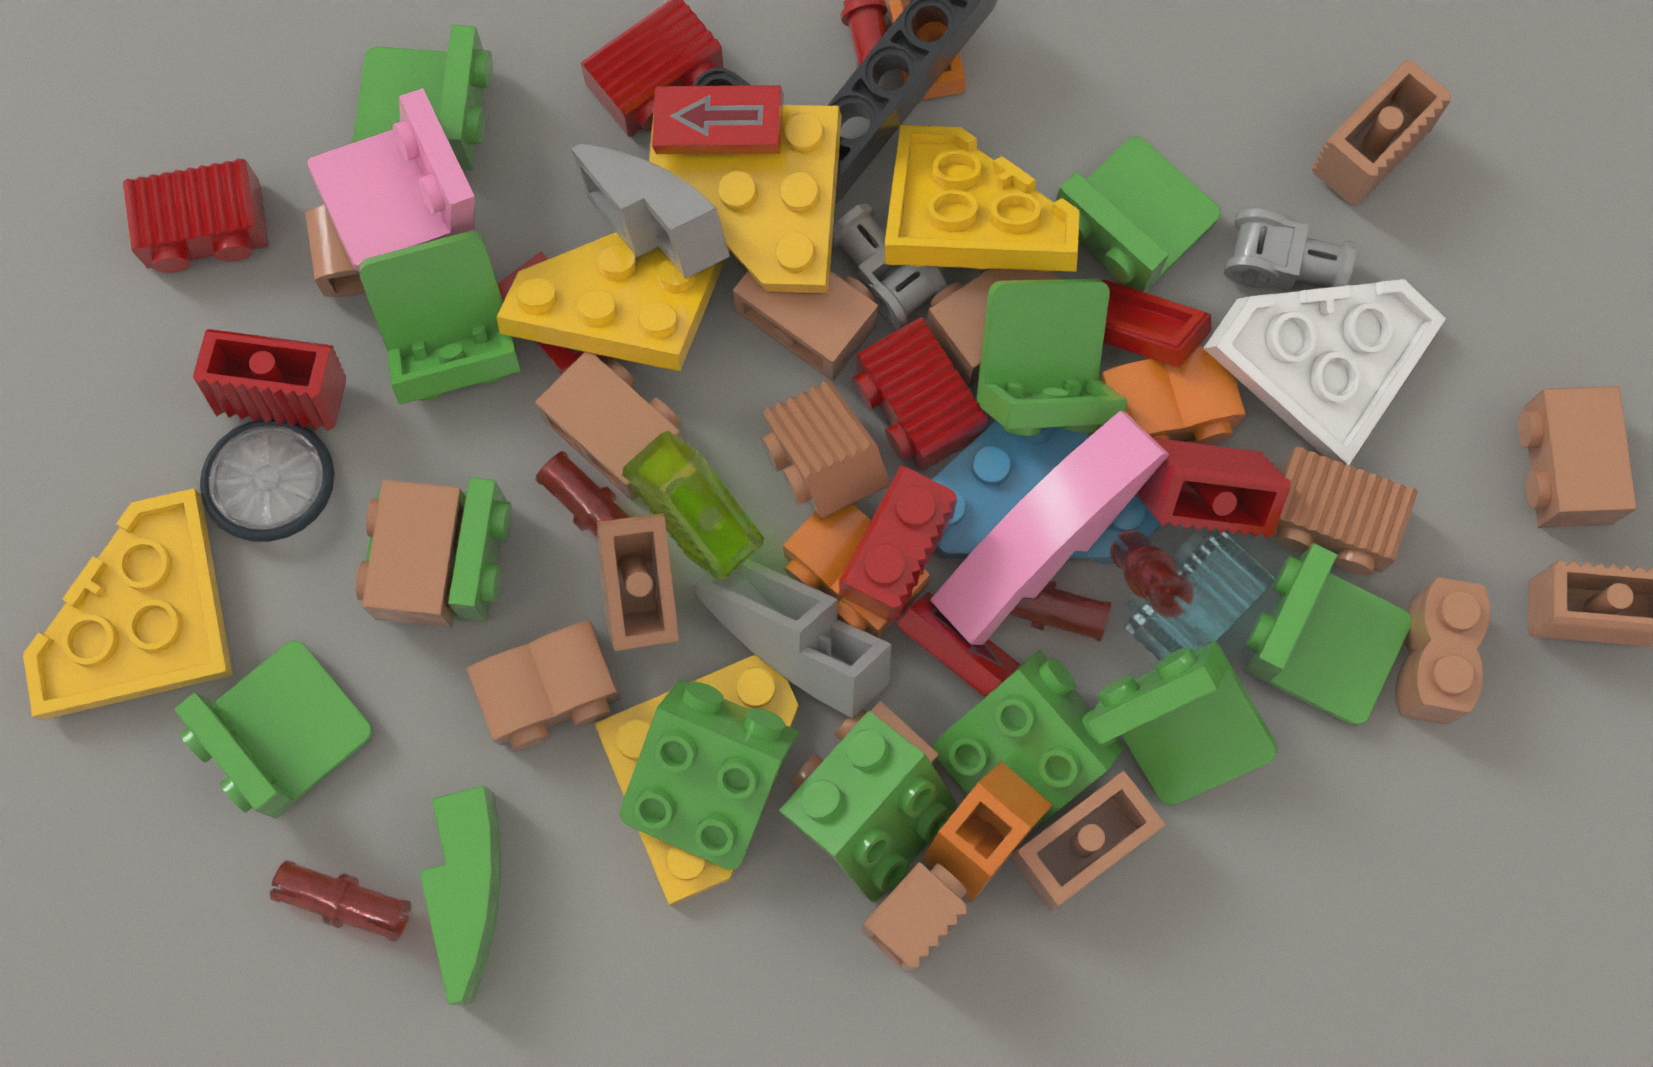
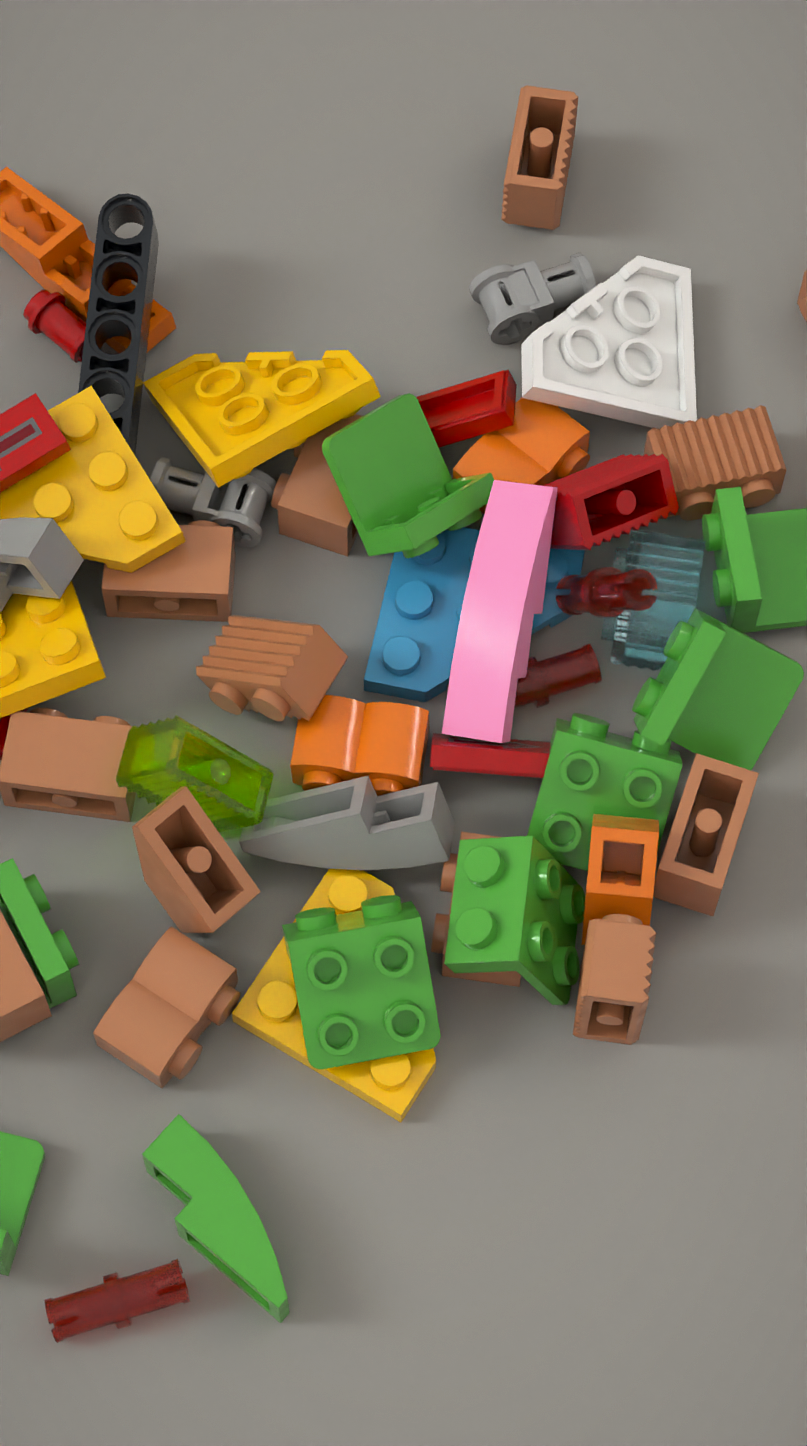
camera: 35 degrees left, 10 degrees down
(579, 493) = (88, 840): clear red pin -> none
(897, 544) = (391, 694): red brick -> none
(919, 395) = (314, 580): red brick -> none
(1138, 213) = (392, 331): bright green bracket -> none

